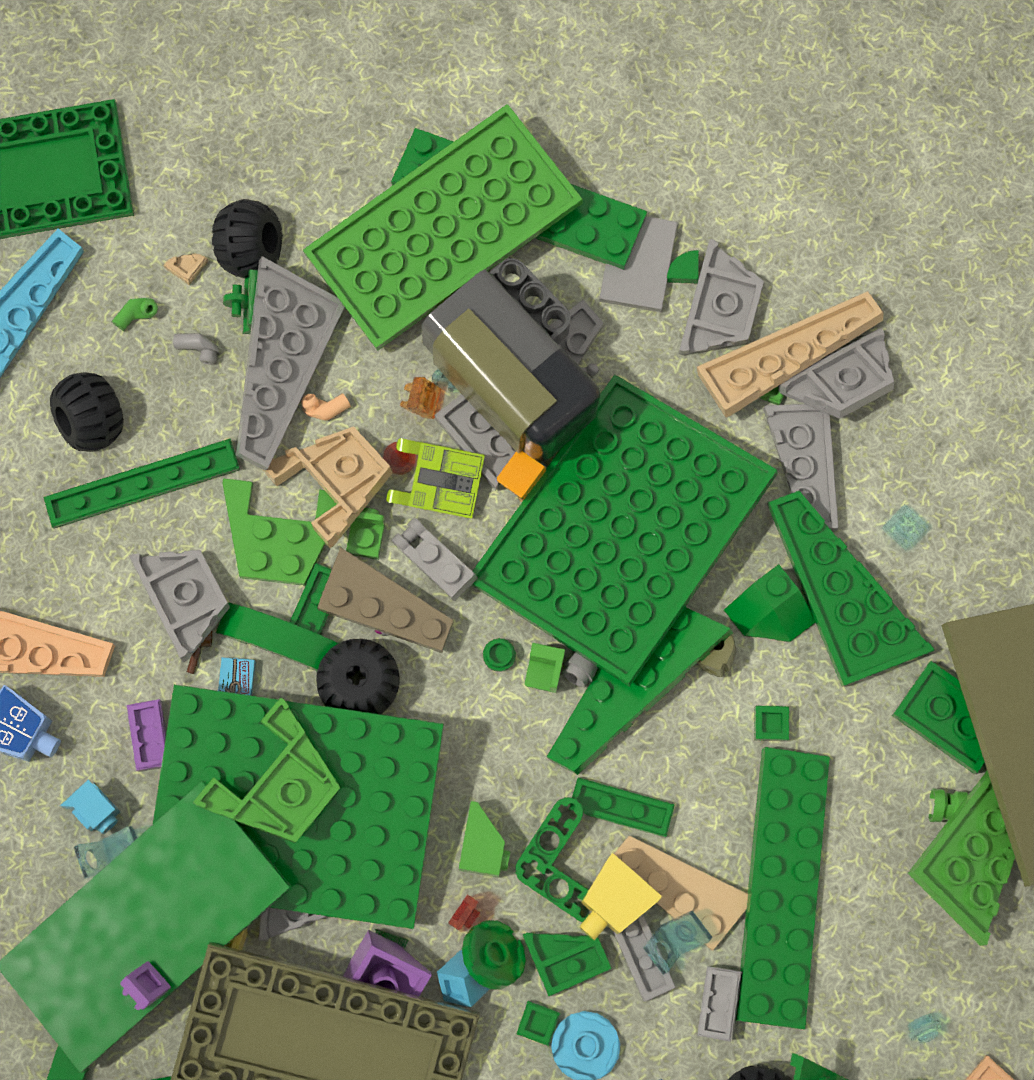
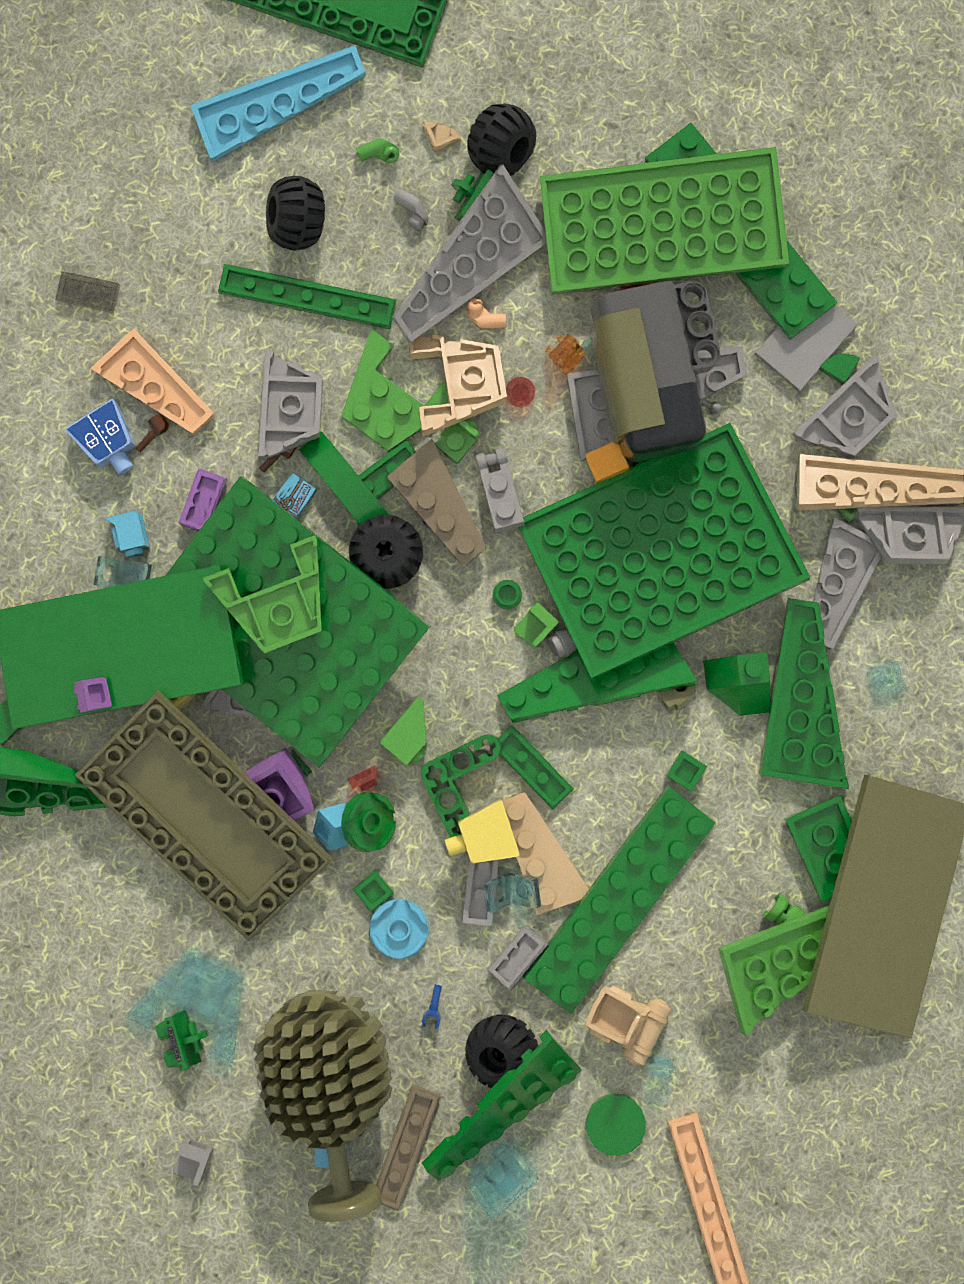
camera: 30 degrees right, 10 degrees up
(63, 687) = (159, 426): none -> reddish brown hand
(443, 479) = (544, 430): lime flag -> none
(565, 959) = (421, 856): green wing -> none
(865, 1003) = (628, 1022): none -> tan piece

